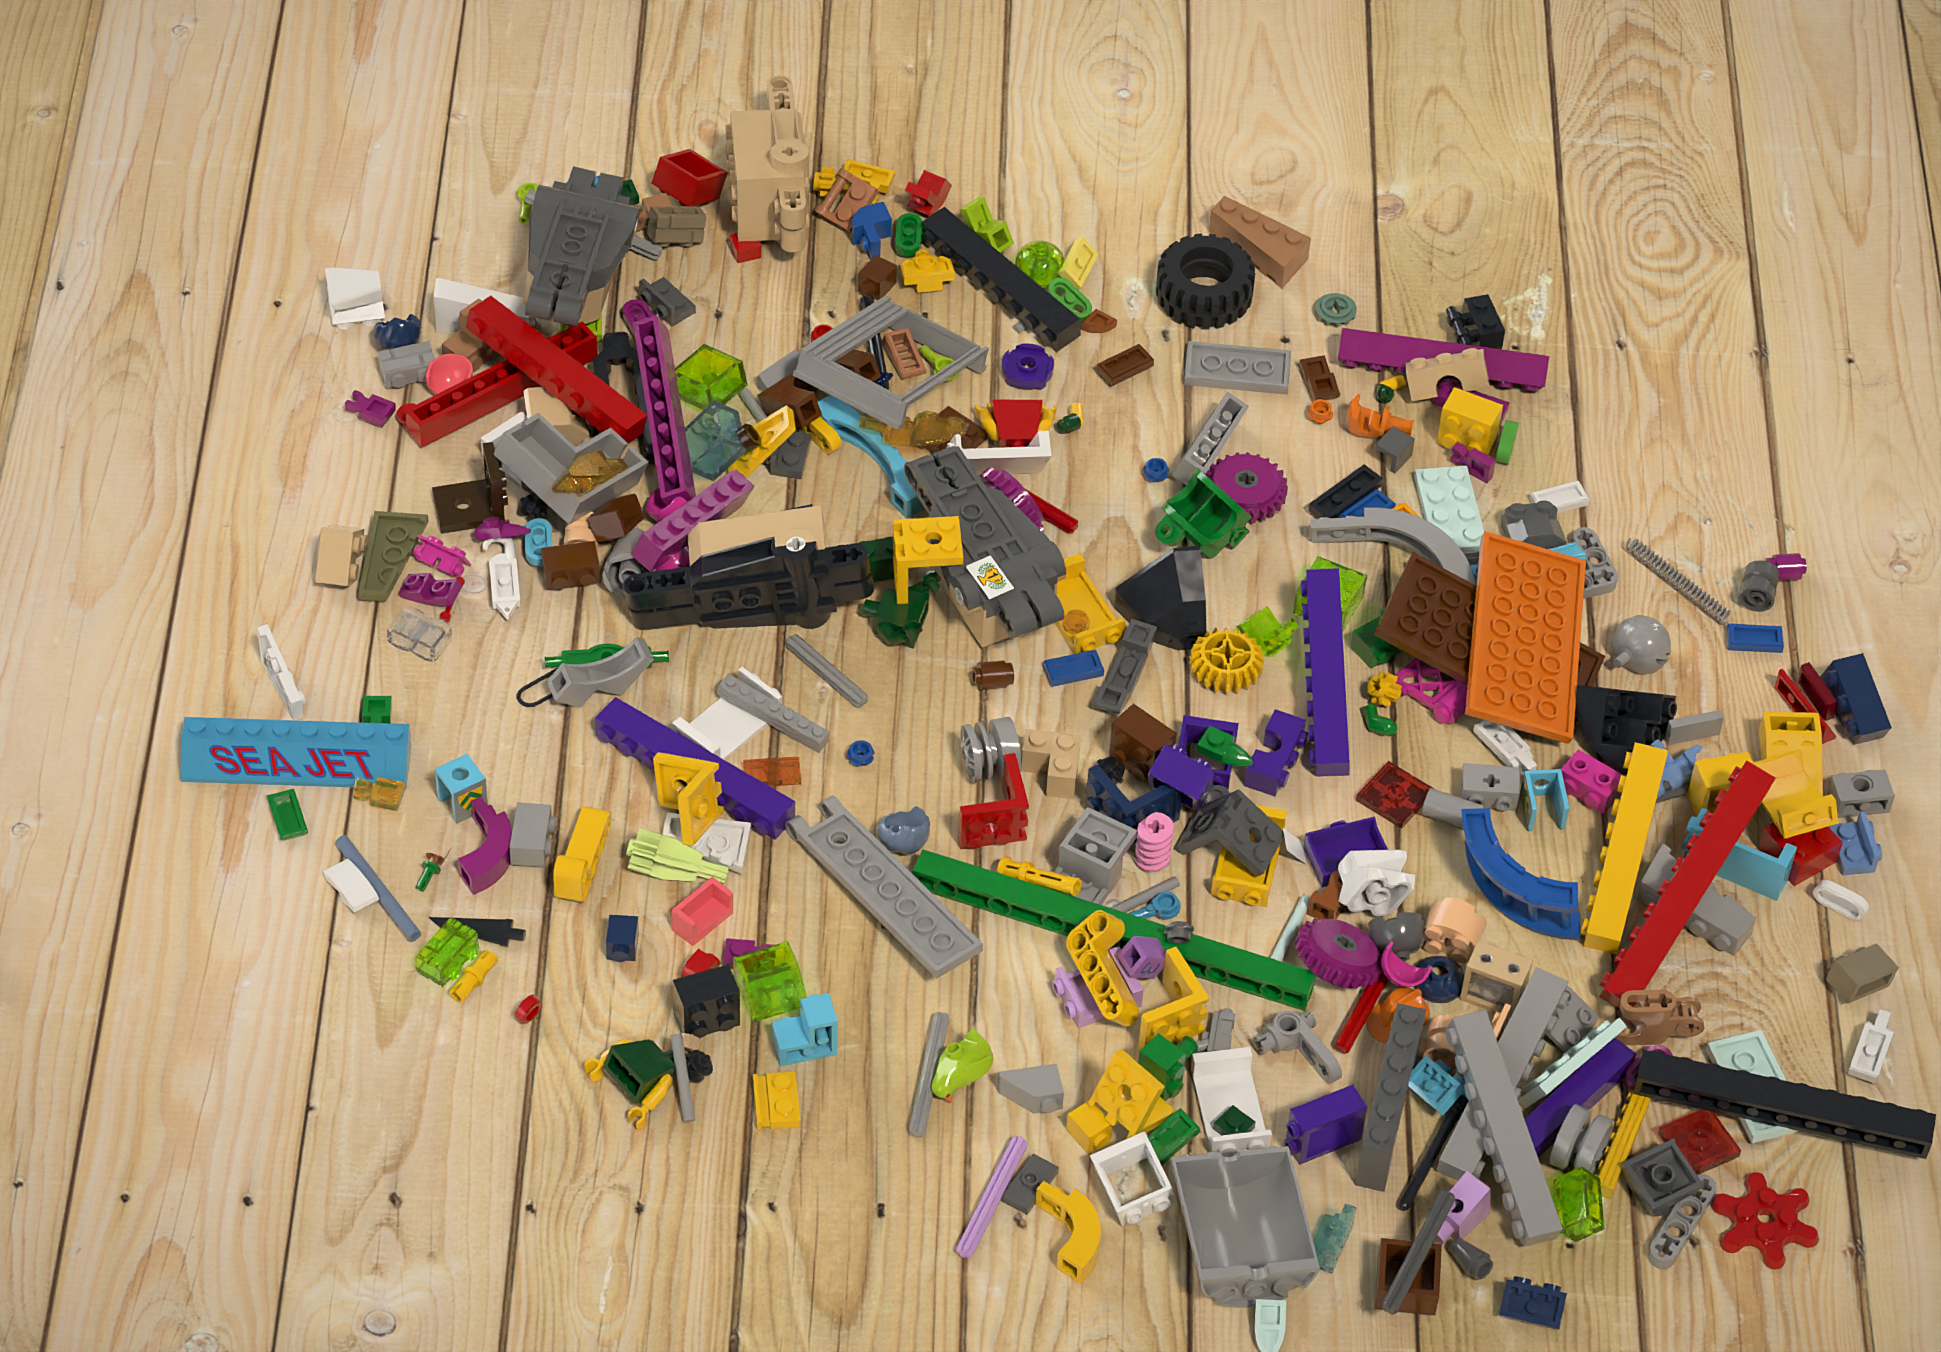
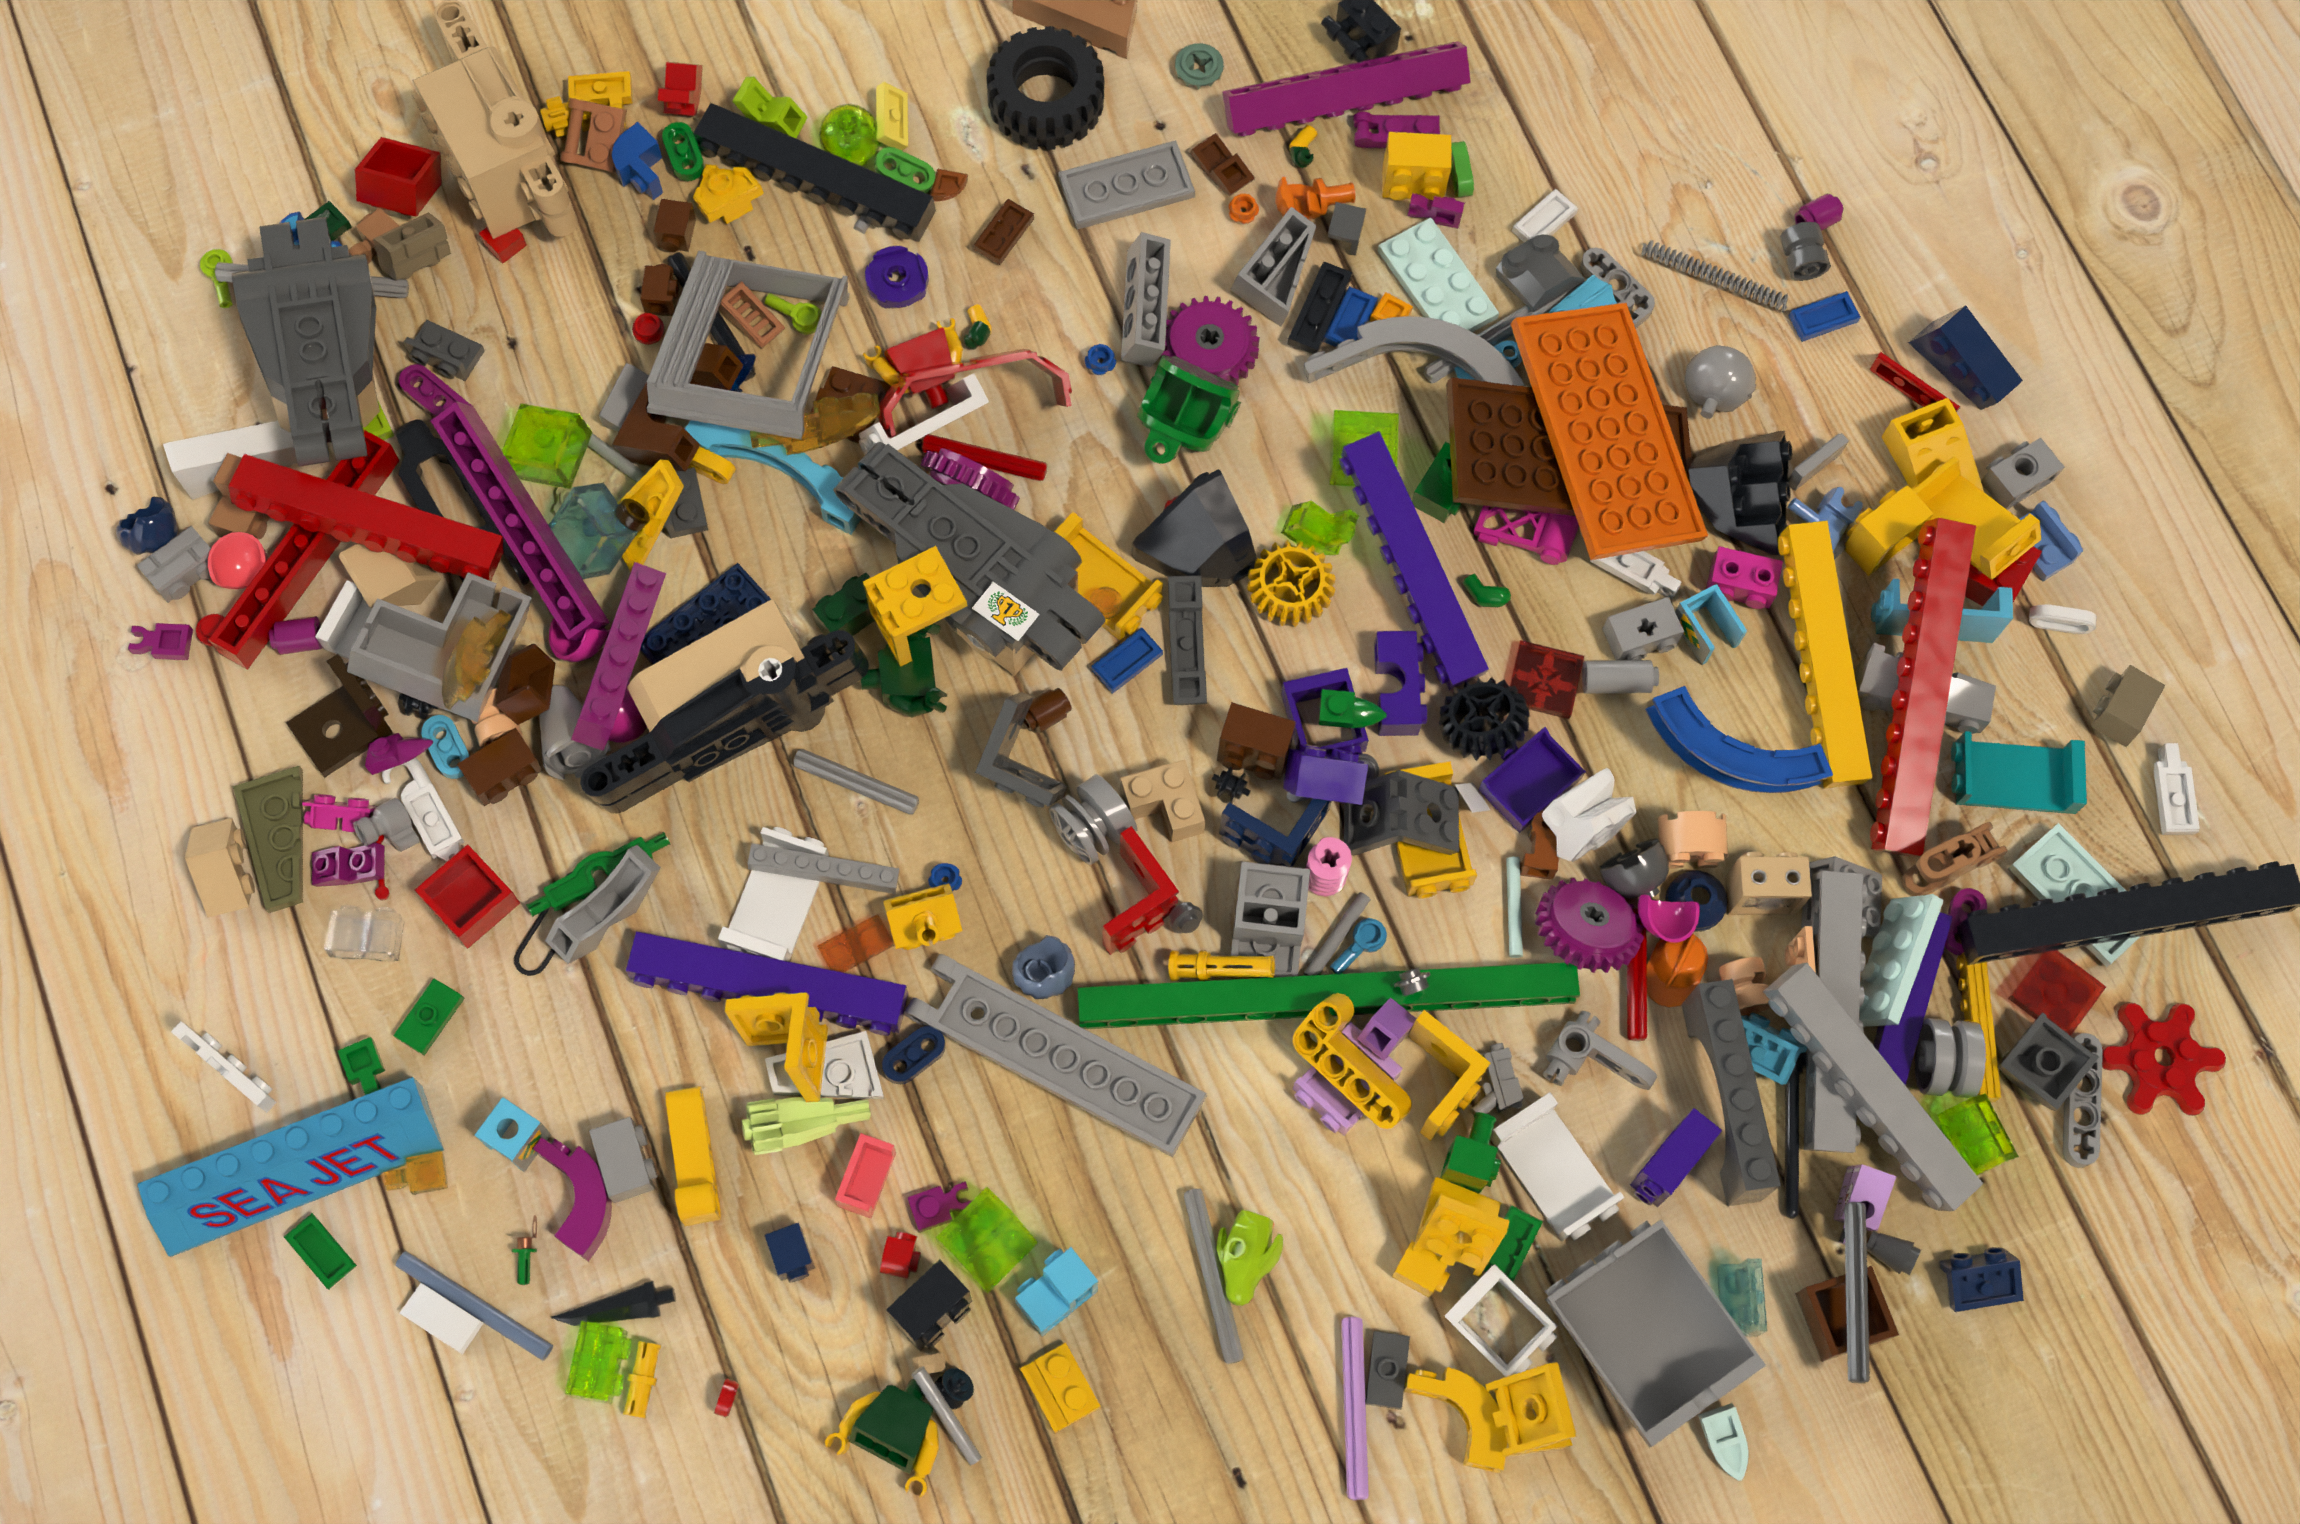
camera: 25 degrees left, 20 degrees up
(354, 297) = (72, 497): white piece -> none
(438, 702) = (429, 1017): none -> green plate
(466, 436) = (295, 635): none -> magenta brick
(475, 572) = (388, 820): none -> light grey piece
(505, 634) = (467, 896): none -> red piece
(778, 852) = (912, 1054): none -> dark blue plate
(830, 766) = (923, 917): none -> yellow brick
(842, 309) = (659, 290): none -> reddish brown brick
(948, 674) = (1009, 774): none -> dark grey bracket
(1029, 842) = (1185, 918): none -> flat silver plate
(1033, 1088) = (1340, 1246): light grey slope -> none
(1055, 428) = (1060, 380): none -> red windscreen
(1120, 1223) = (1537, 1390): none -> yellow bracket
(1234, 1122) = (1572, 1194): dark green plate -> none
(1324, 453) = (1276, 266): none -> light grey wedge
(1329, 794) = (1485, 710): none -> black gear
(1384, 689) = (1477, 550): yellow gear -> none
(1466, 366) = (1383, 95): tan arch -> none
(1745, 991) = (2019, 776): none -> teal panel
(1817, 691) = (1921, 361): dark red tile -> none

